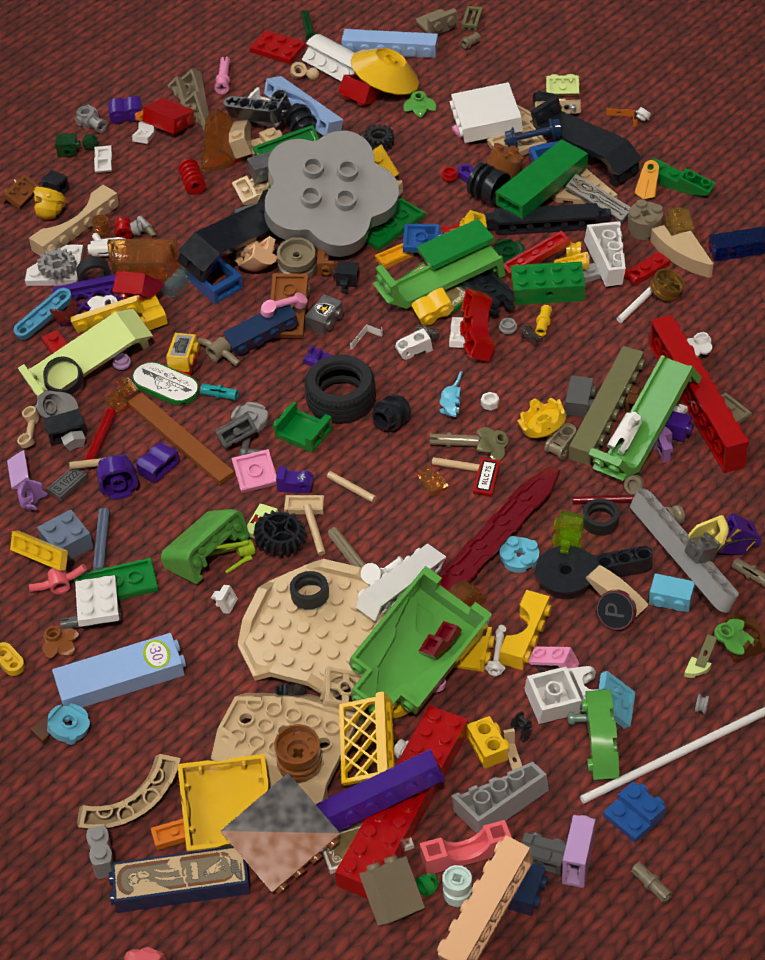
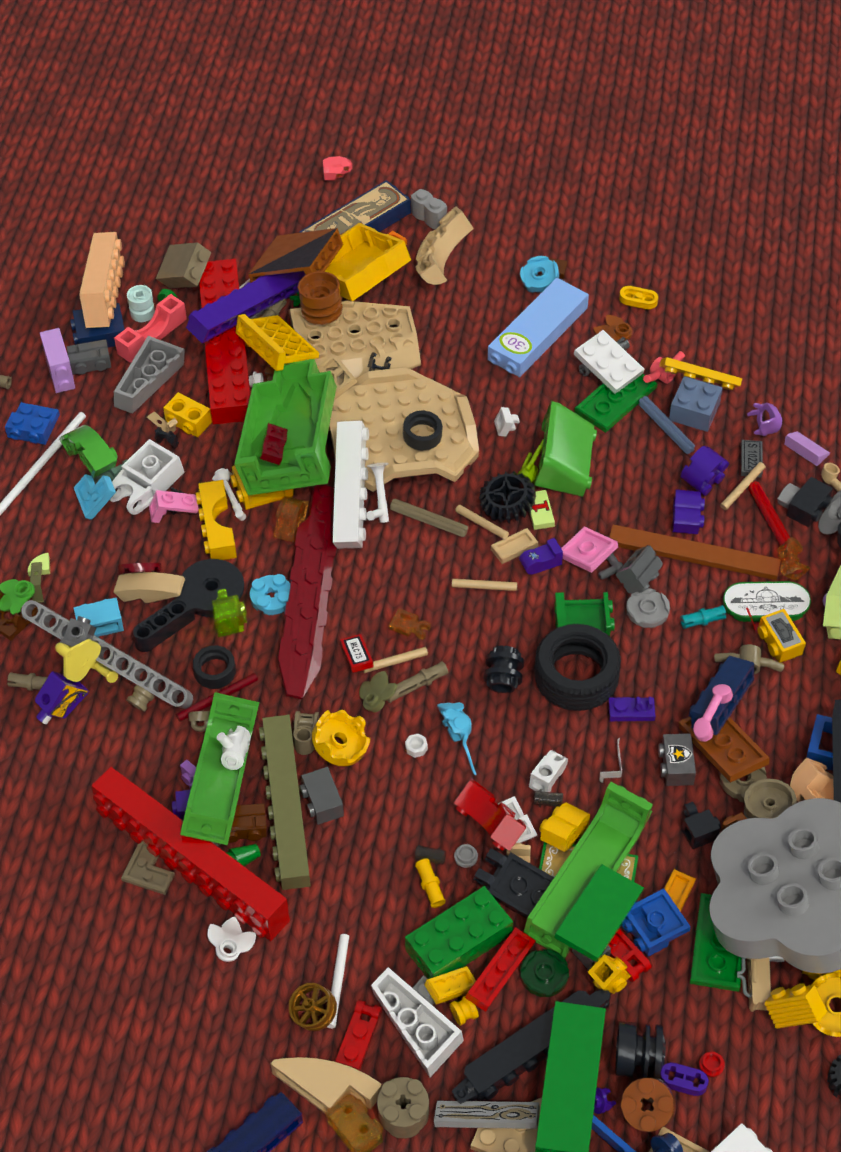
camera: 145 degrees right, 5 degrees up
(701, 704) = (17, 530): light grey bush -> none

